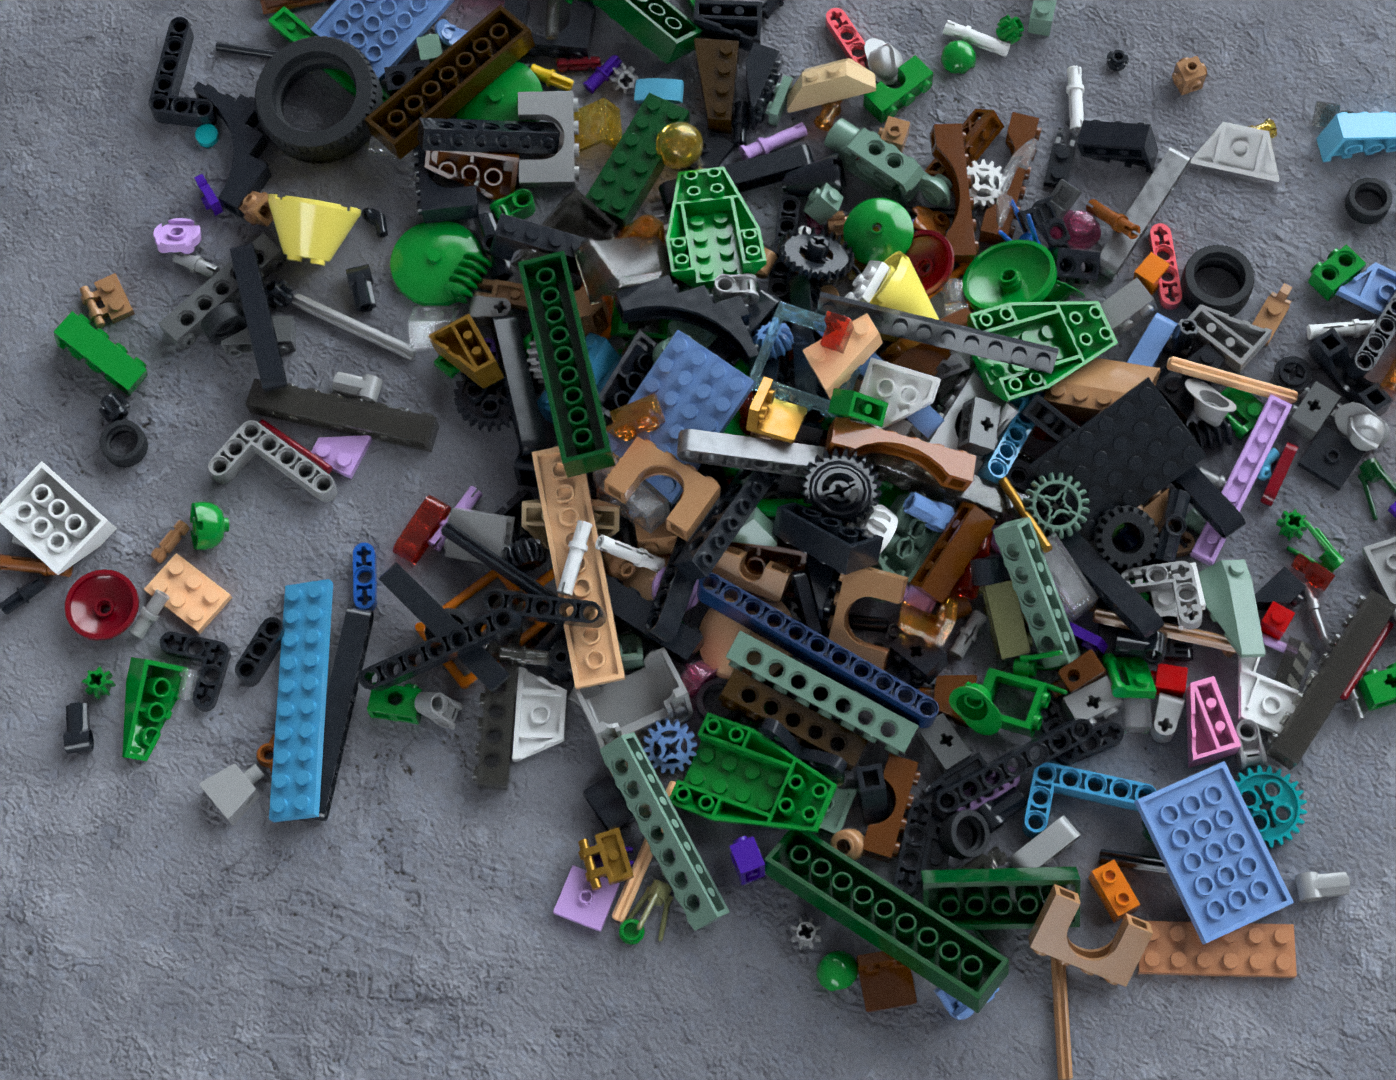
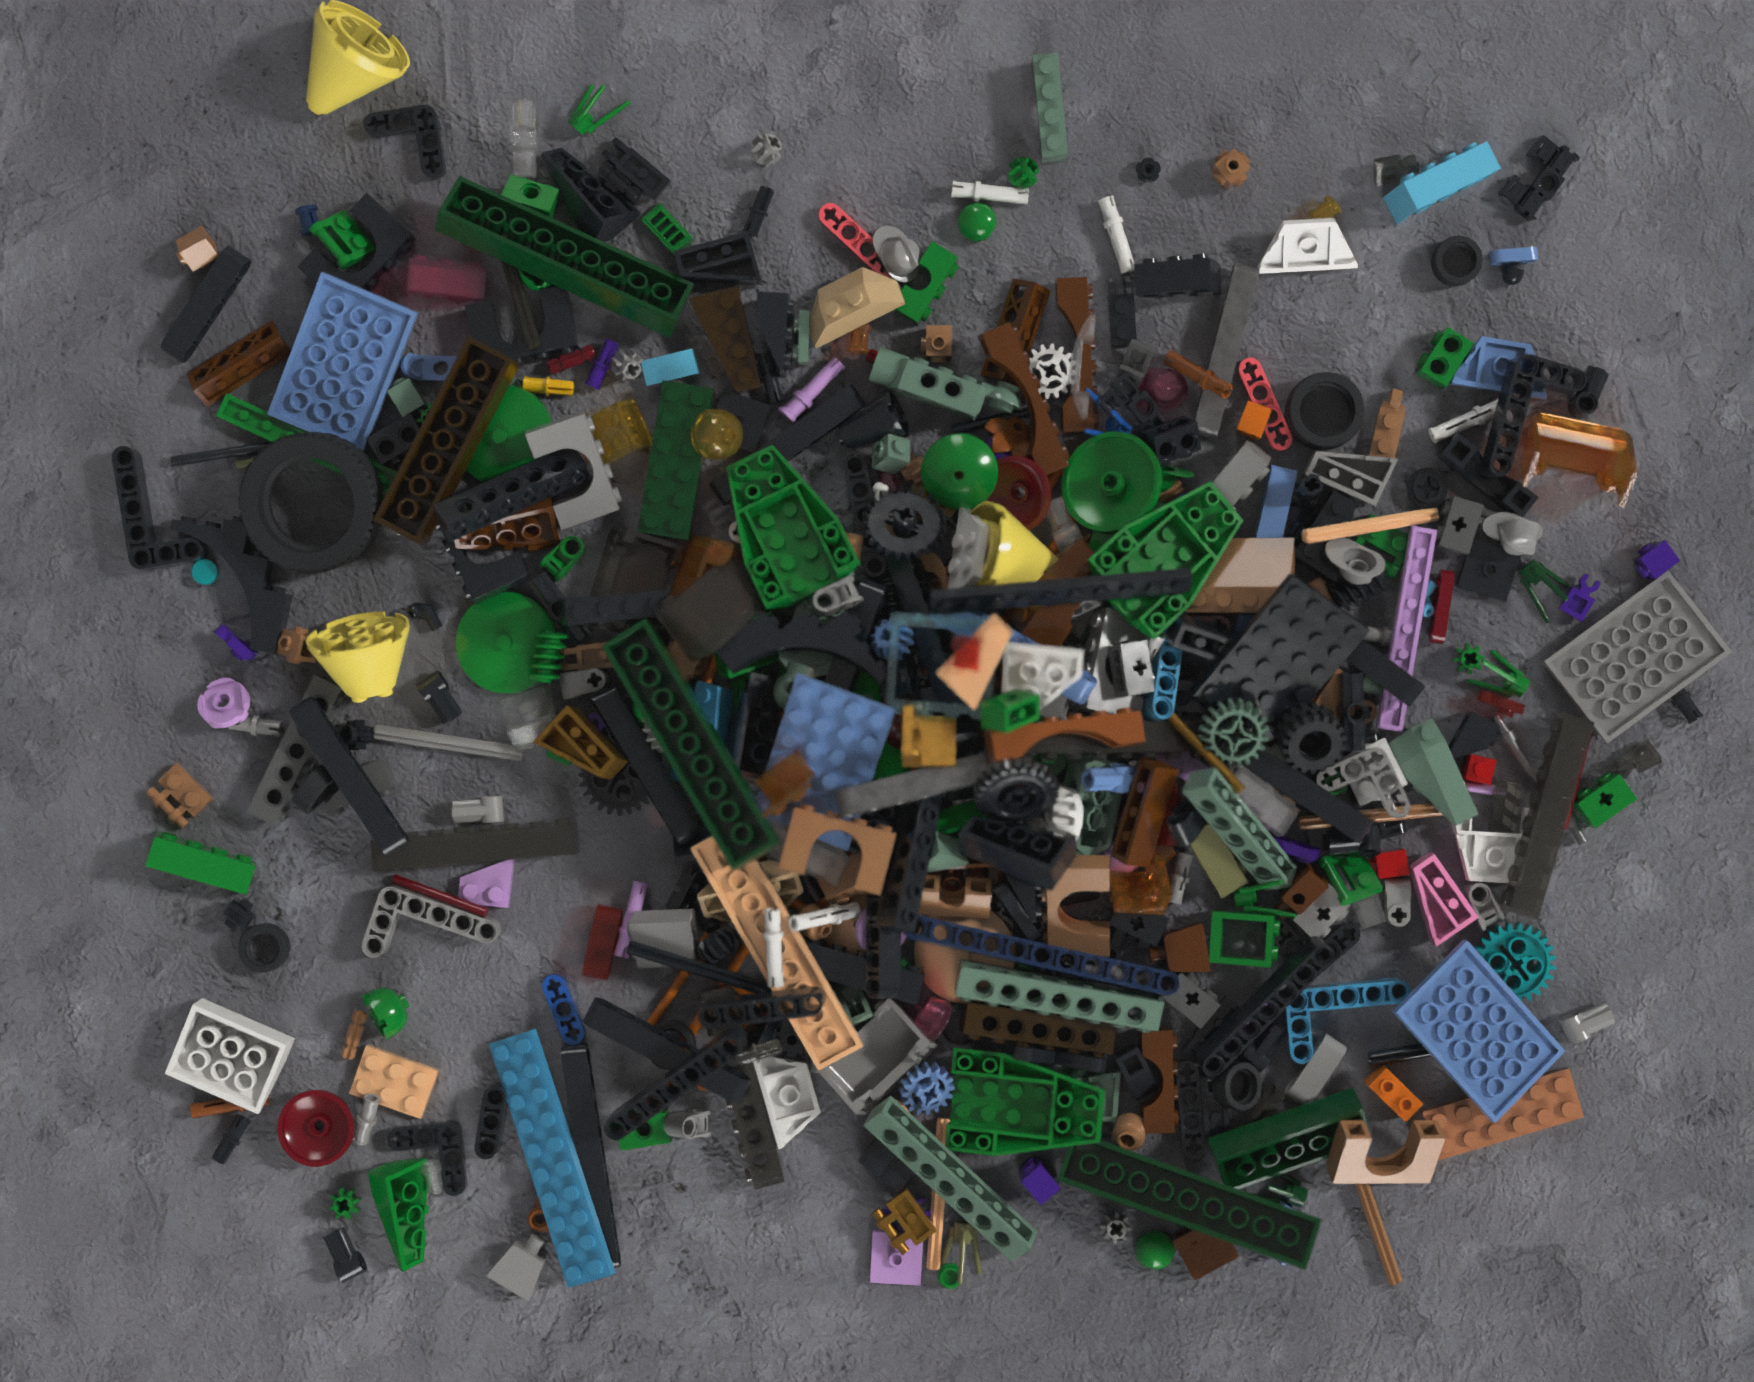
camera: 25 degrees left, 20 degrees up
(976, 708) = (1213, 962): green piece -> none

